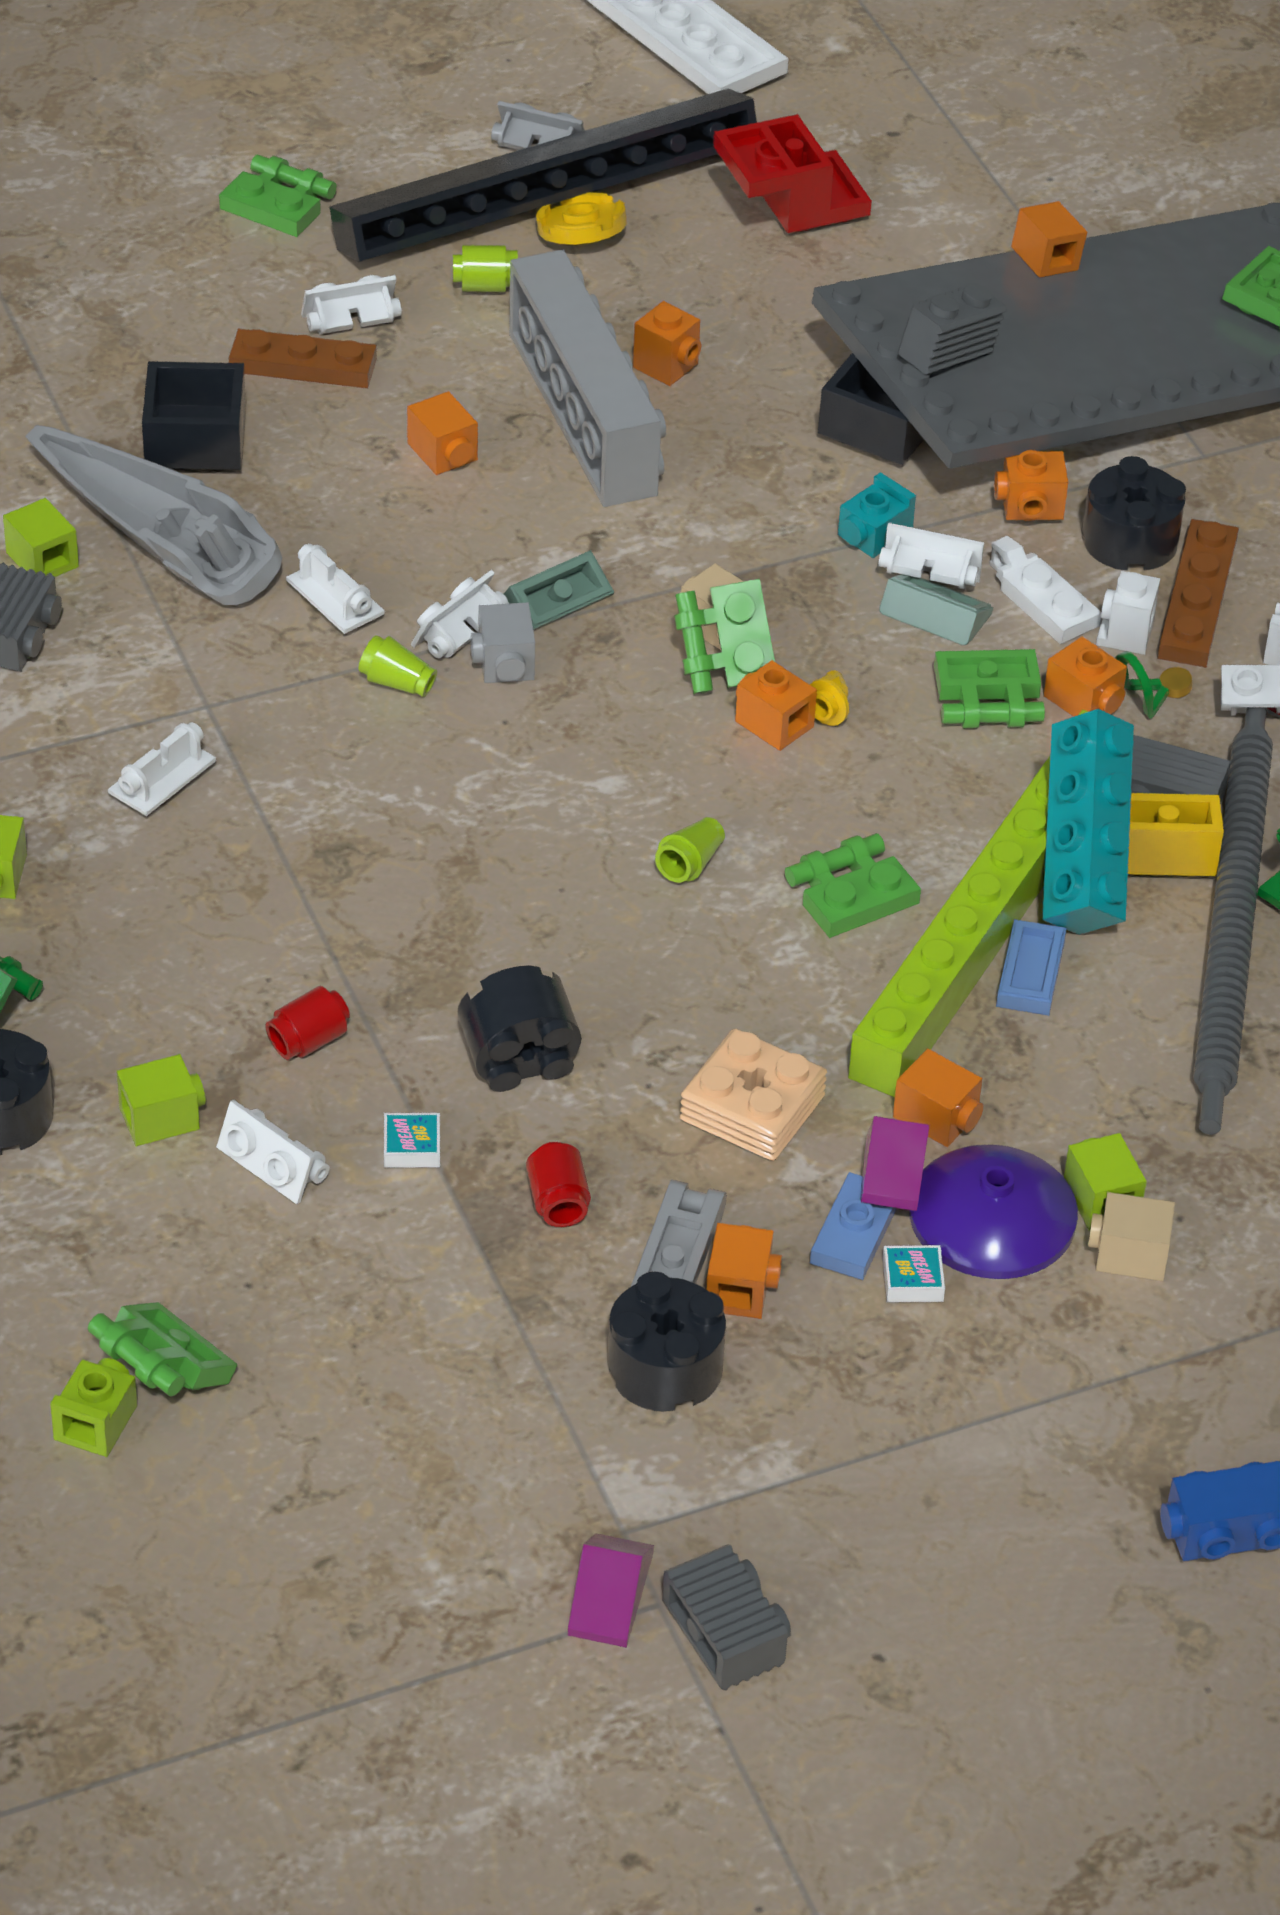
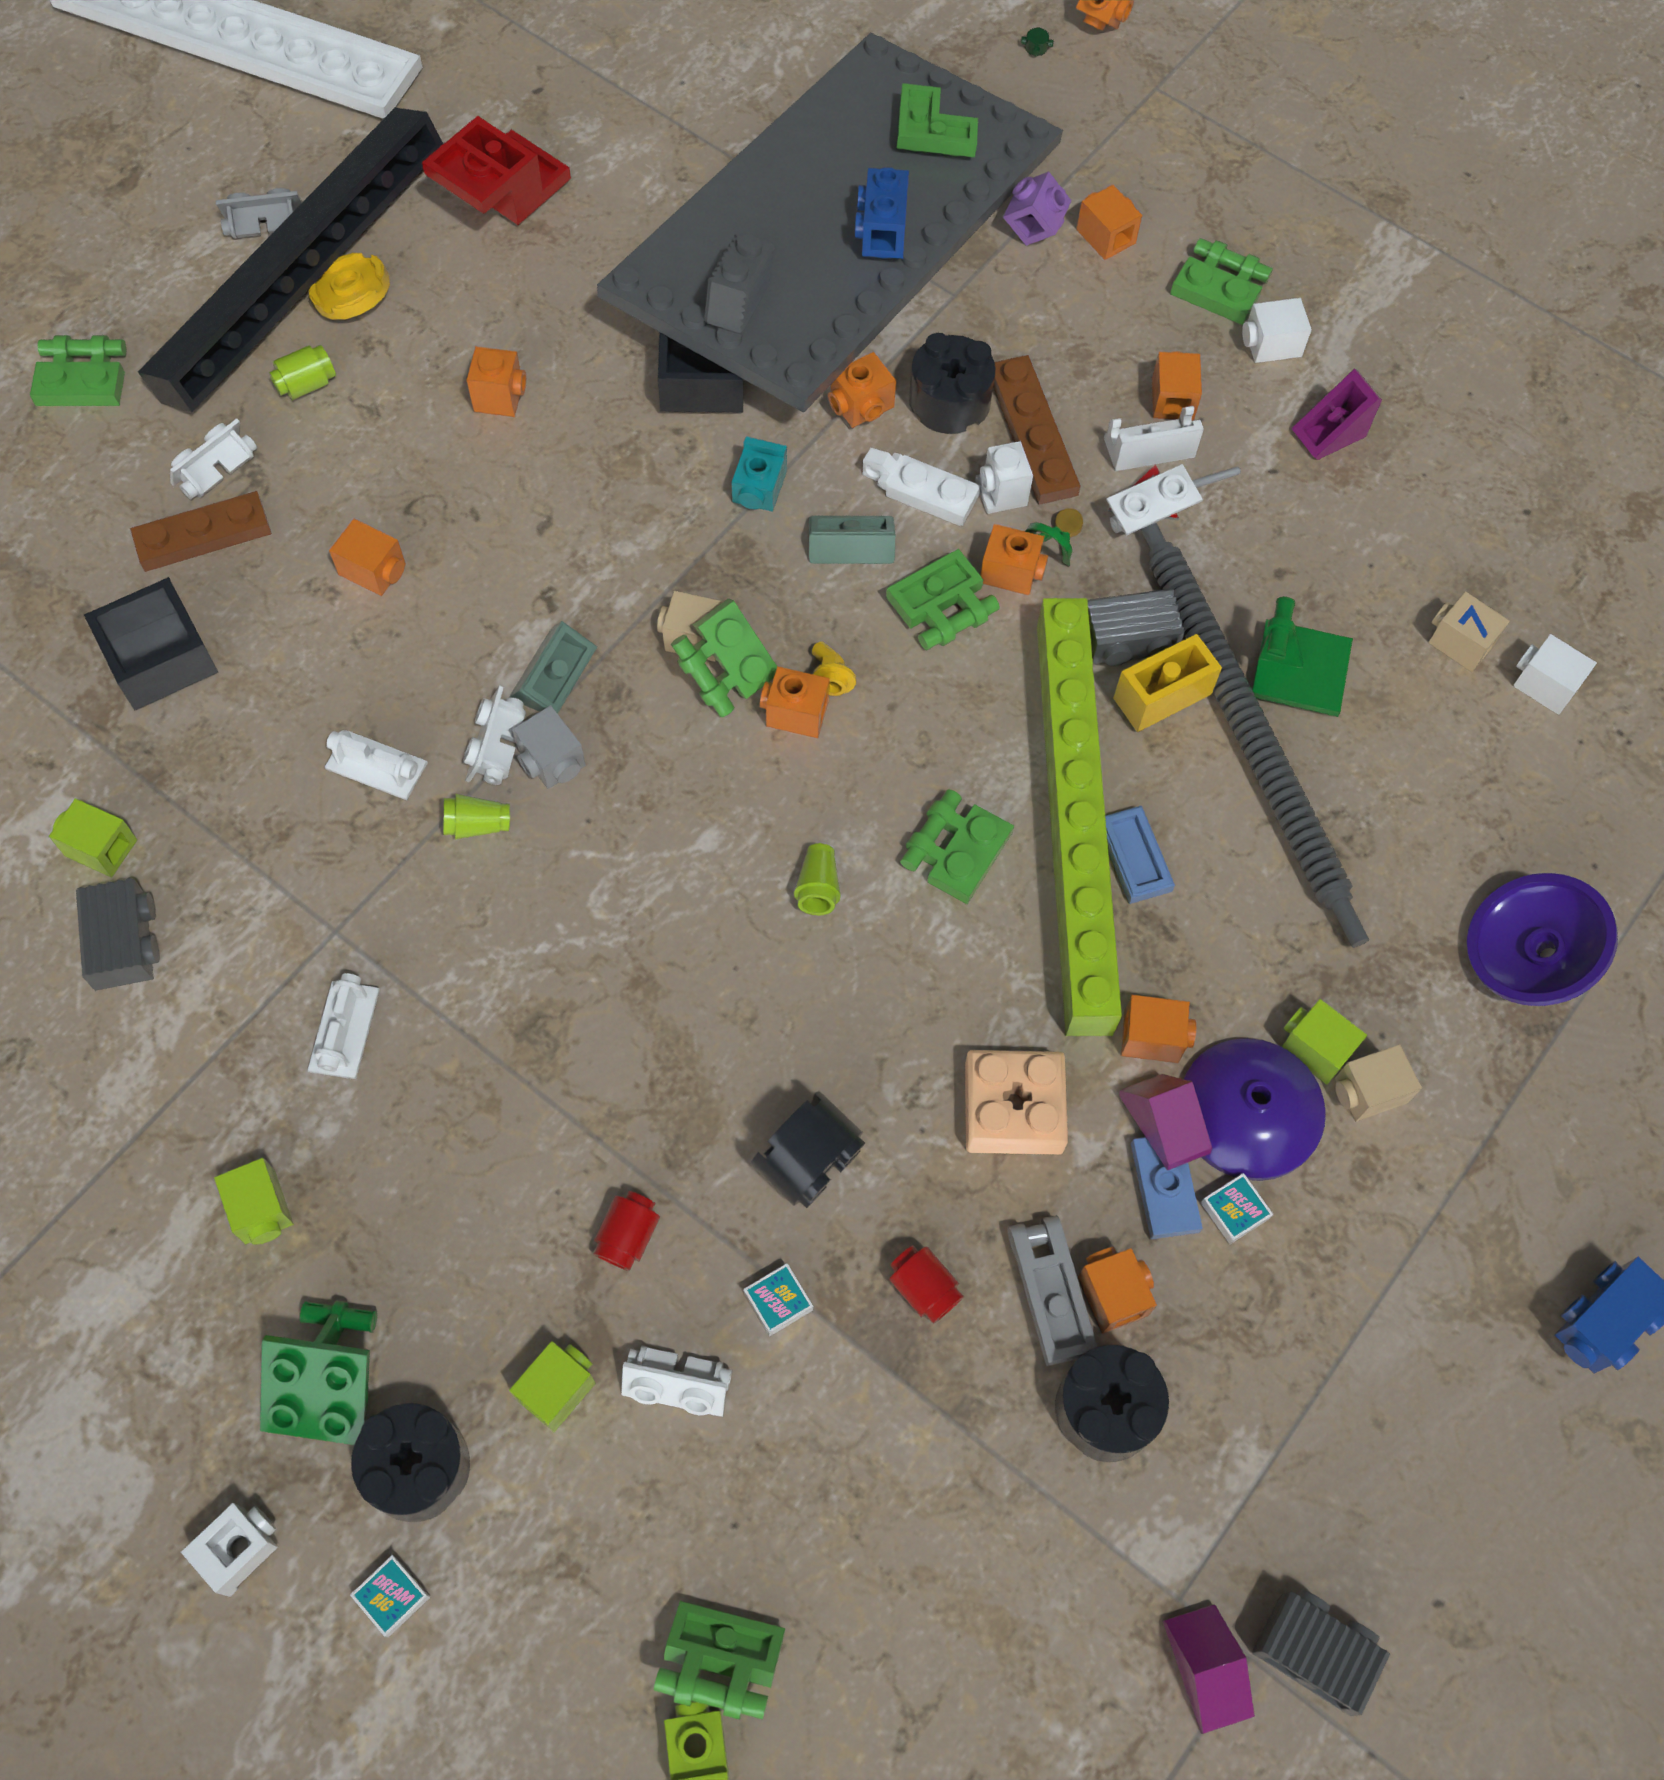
camera: 30 degrees left, 20 degrees up
(172, 516) = (190, 759): light grey piece -> none
(586, 378) = (456, 450): light grey brick -> none
(947, 557) = (806, 497): white hinge -> none
(1049, 239) = (744, 152): orange brick -> none
(1088, 822) = (1124, 712): teal brick -> none
(1153, 335) = (884, 213): none -> blue brick

